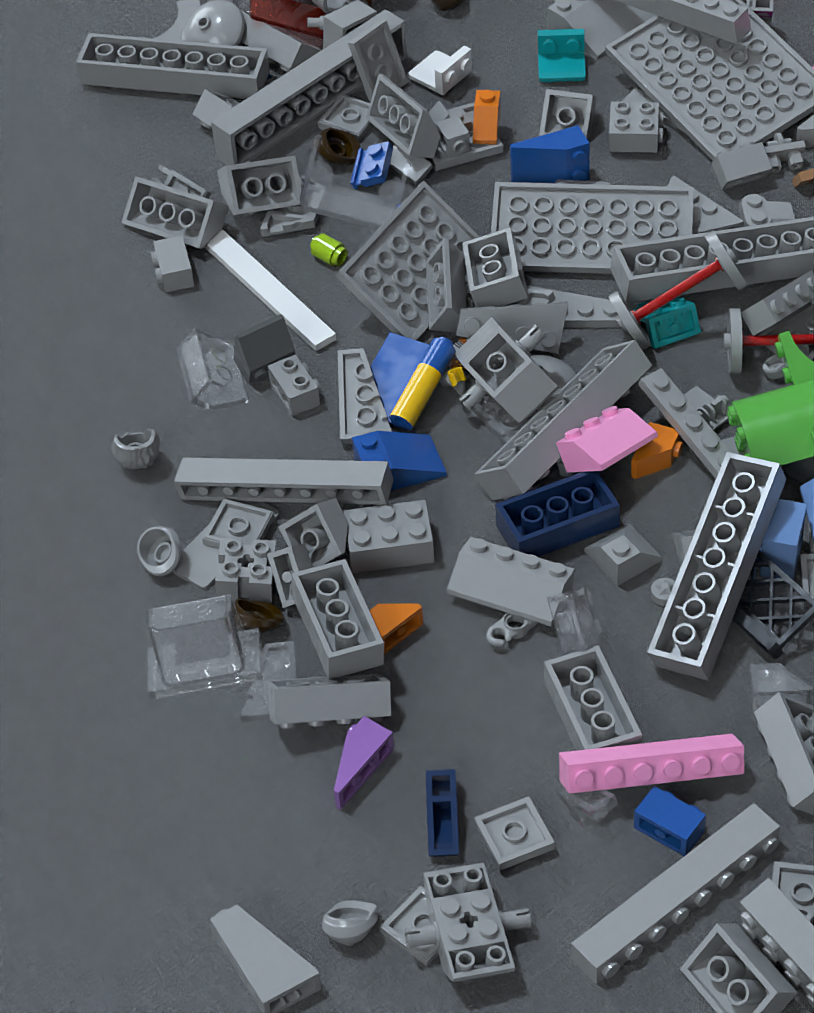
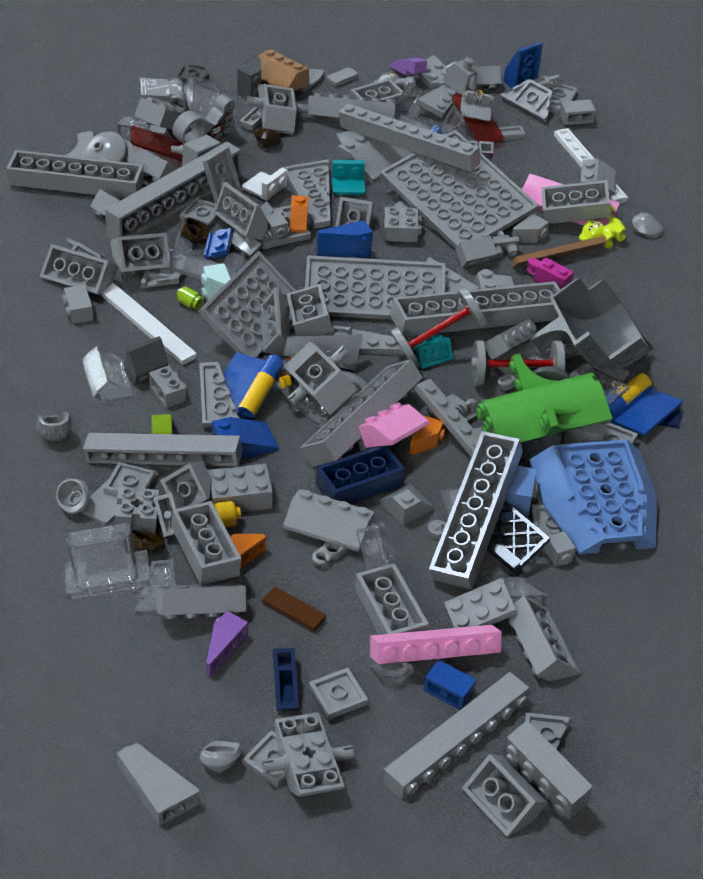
camera: 10 degrees left, 5 degrees down
(284, 443) = (161, 424): none -> lime slope
(361, 222) = (213, 279): none -> light aqua slope
(369, 573) = (228, 513): none -> yellow head
(458, 711) = (294, 609): none -> reddish brown tile
(507, 67) = (312, 181): none -> light grey wing
(719, 706) = (481, 606): none -> light grey plate

